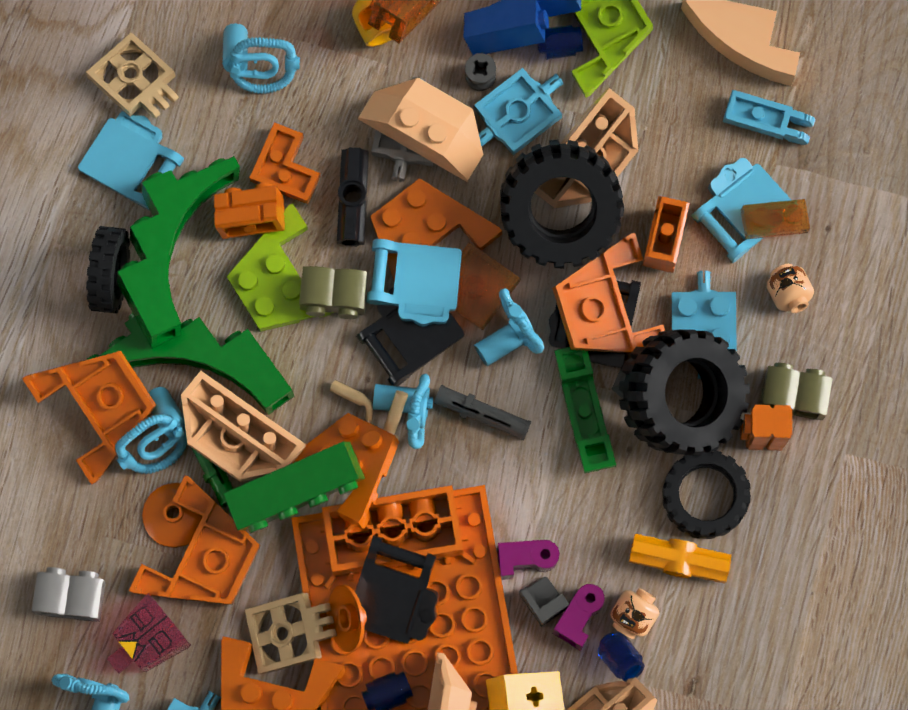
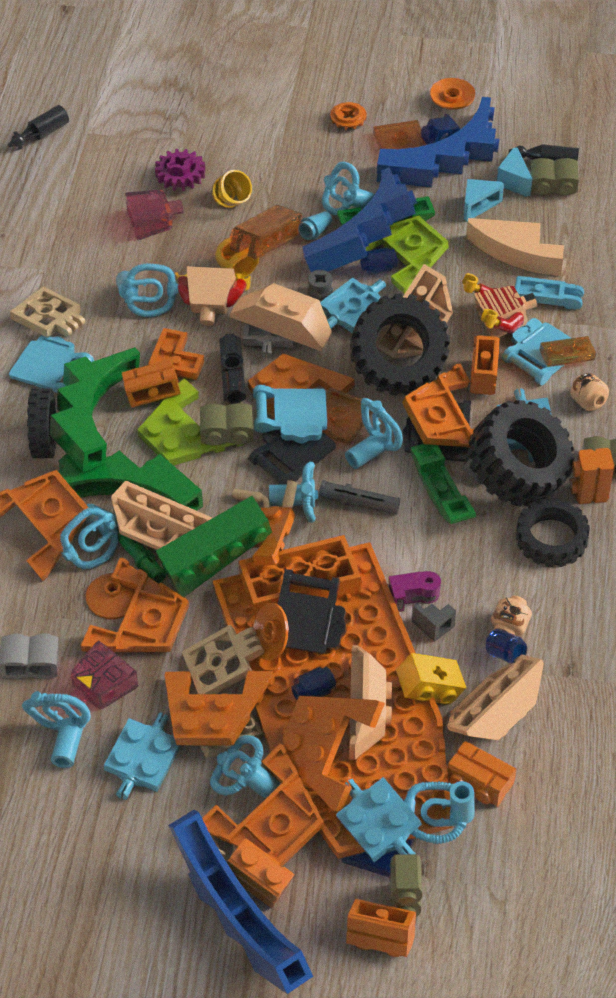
camera: 10 degrees left, 25 degrees down
(339, 70) = (210, 290): none -> light nougat torso
(585, 603) = (461, 630): magenta leg -> none
(680, 558) = (540, 576): light orange piece -> none
(700, 144) = (499, 308): none -> torso

